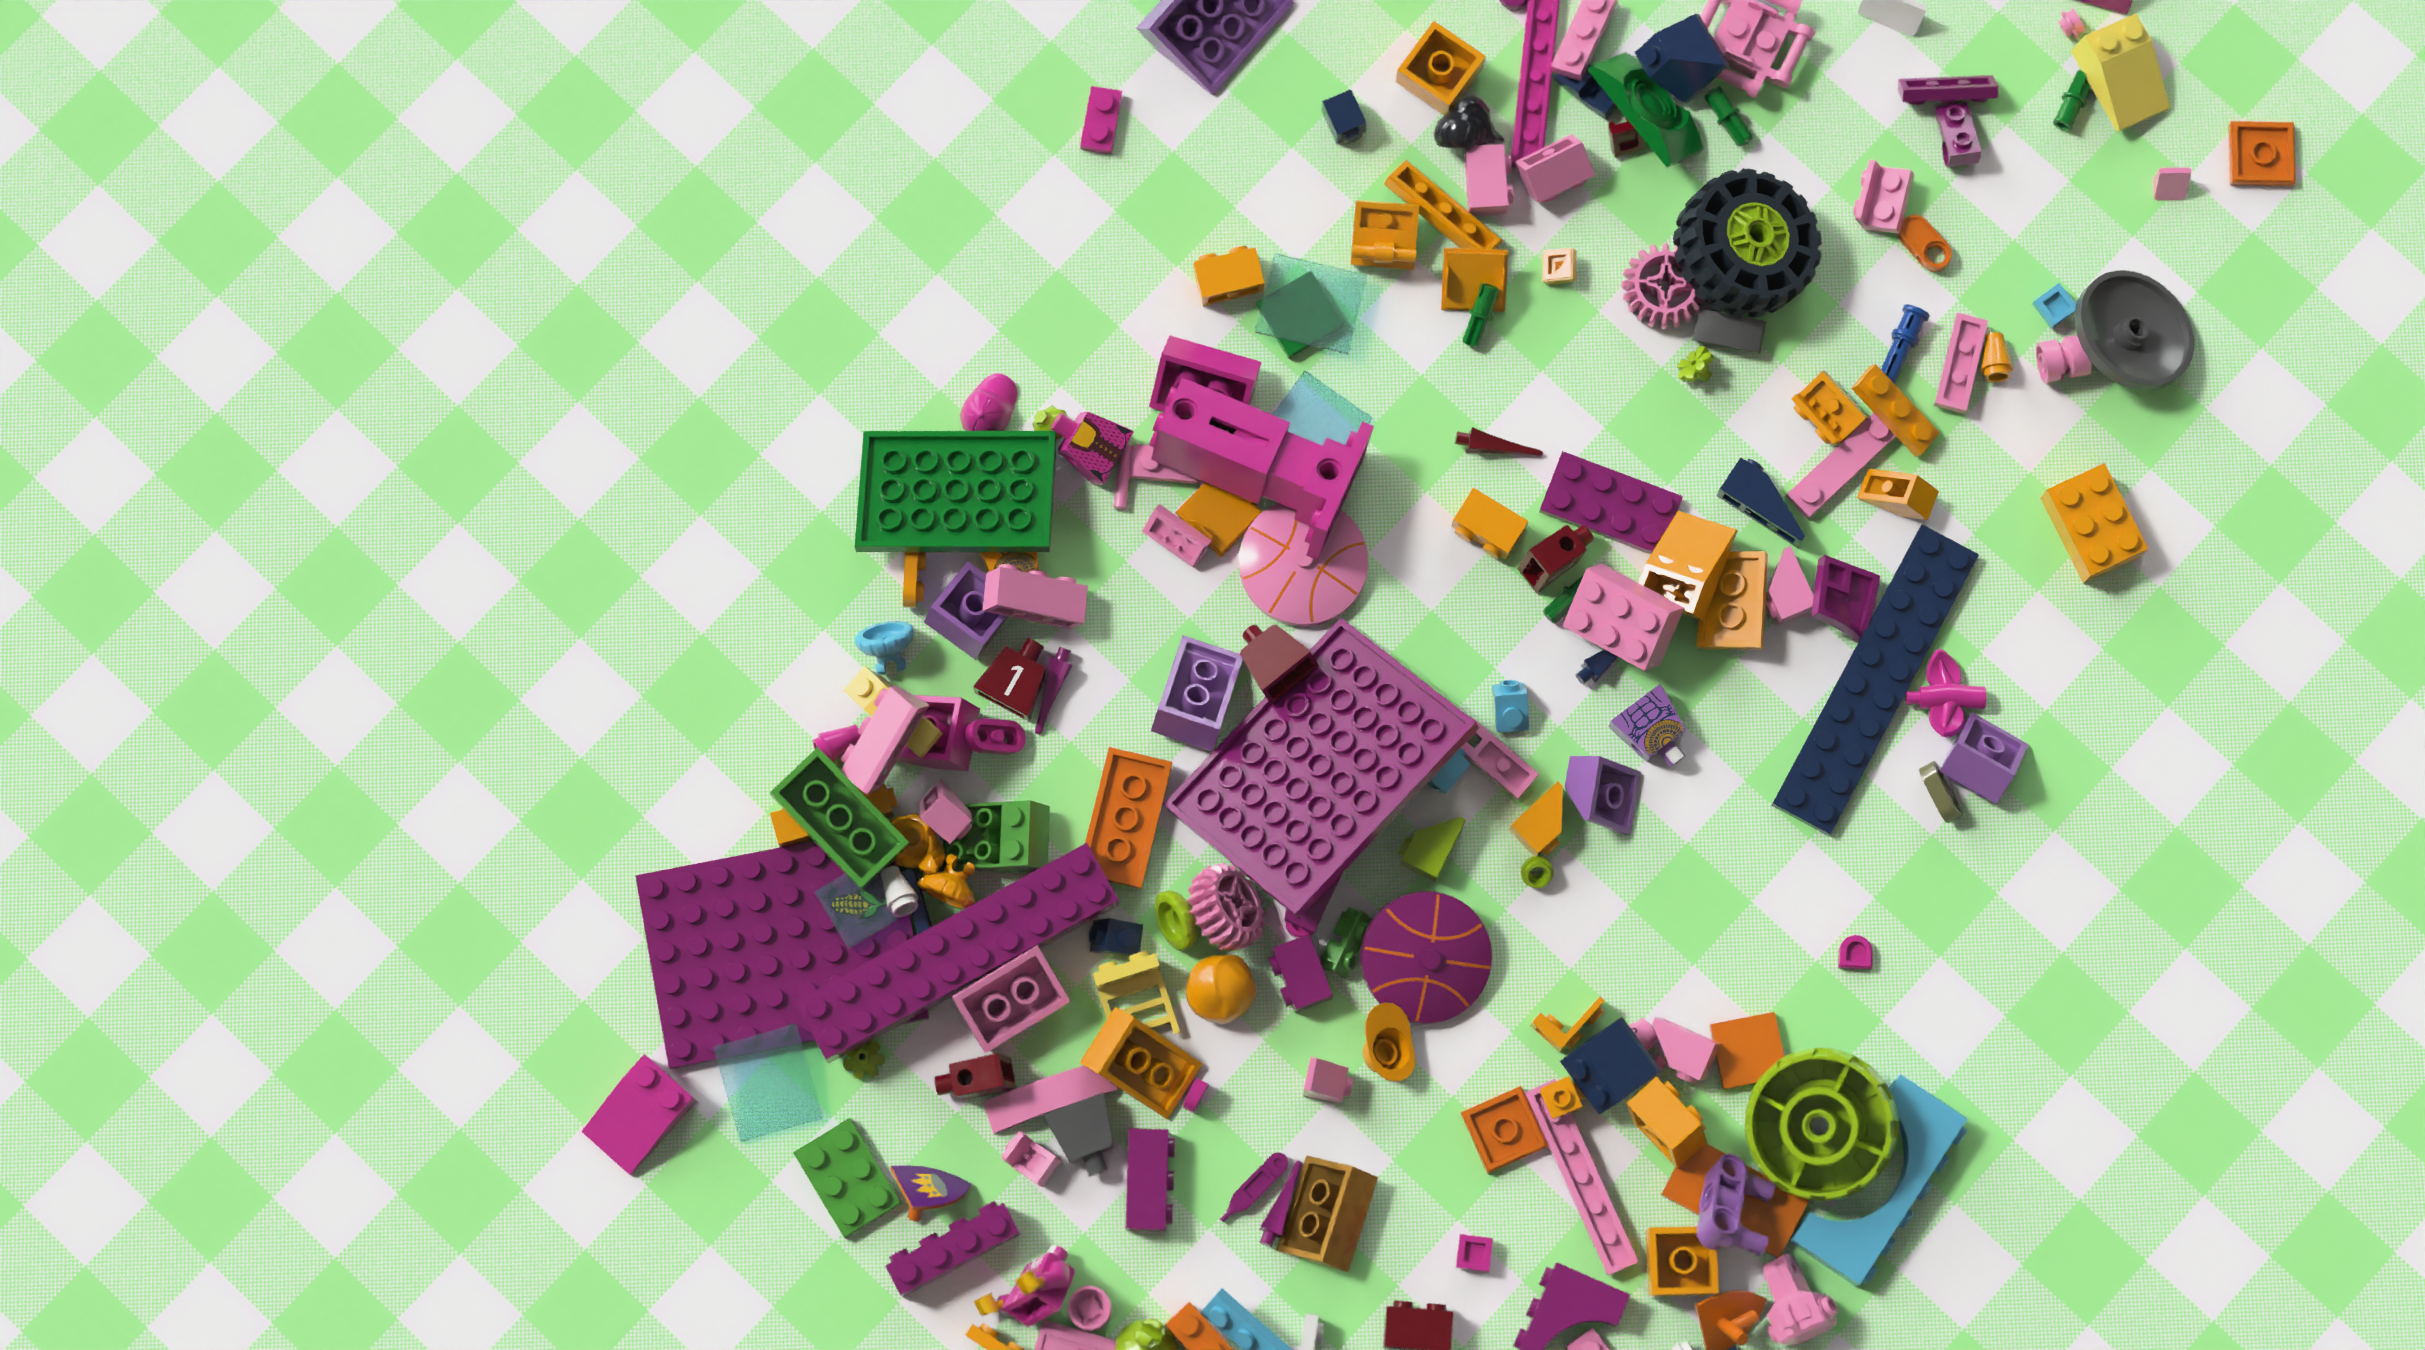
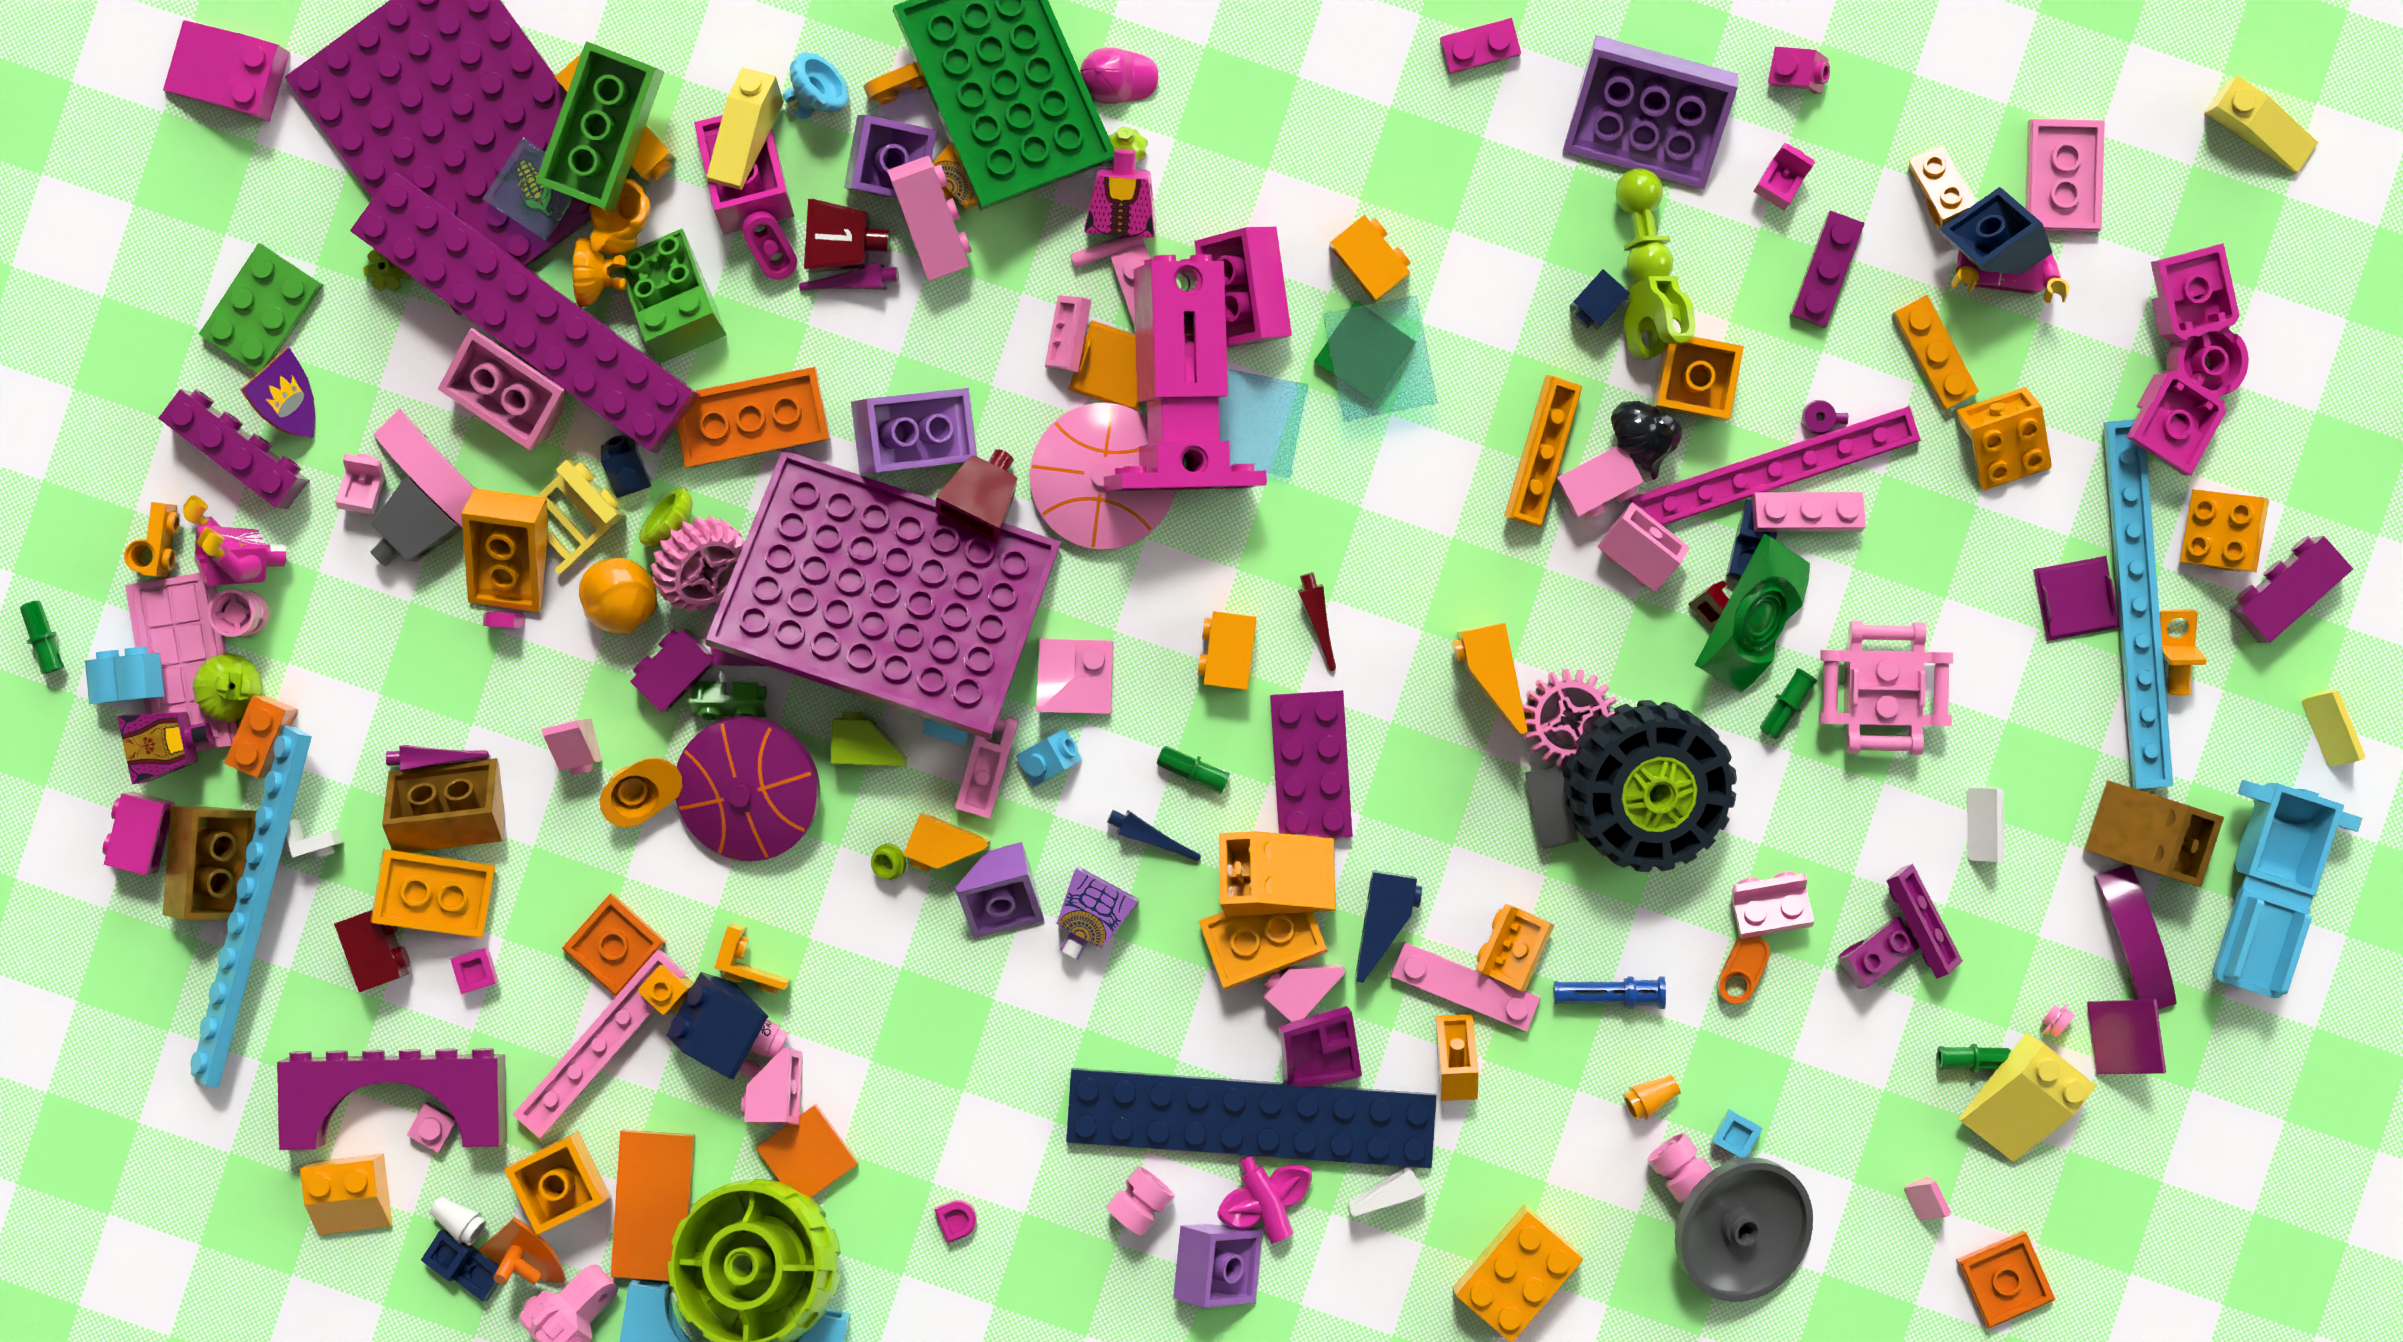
camera: 65 degrees right, 10 degrees up
(768, 1082) = (315, 183): clear light blue piece -> none
(836, 742) = (691, 86): dark pink cone -> none
(882, 738) = (699, 131): bright pink slope -> none
(899, 894) = (557, 223): white cone -> none
(920, 915) = (561, 249): dark blue tile -> none
(945, 812) = (665, 230): bright pink slope -> none
(990, 1075) = (415, 394): dark red torso -> none
(1149, 1180) = (395, 612): magenta brick -> none
(1256, 1184) = (444, 722): magenta piece -> none
(1363, 71) = (1656, 294): none -> lime piece
(1384, 234) = (1489, 401): light orange plate -> none
(1395, 1253) = (432, 893): none -> light orange plate
(1453, 656) = (1075, 676): none -> bright pink plate
(1465, 271) = (1484, 516): light orange piece -> none
(1481, 314) = (1450, 540): green axle -> none
(1554, 556) = (1214, 727): dark red torso -> none
(1559, 266) = (1541, 599): tile -> none
(1598, 324) = (1490, 664): none -> light orange slope
(1623, 617) = (1186, 833): bright pink brick -> none
(1667, 1121) = (686, 1108): light orange brick -> none
(1682, 58) = (1825, 628): dark blue slope -> none
(1696, 365) = (1498, 788): lime plant -> none
(1722, 1206) = (627, 1201): medium lavender piece -> none
(1895, 410) = (1543, 1017): light orange plate -> none
(1905, 794) = (1140, 1201): none -> bright pink wheel
(1940, 792) = (1160, 1235): olive beam -> none
(1961, 363) = (1629, 1062): bright pink plate -> none
(1983, 588) = (1393, 1190): none -> white slope

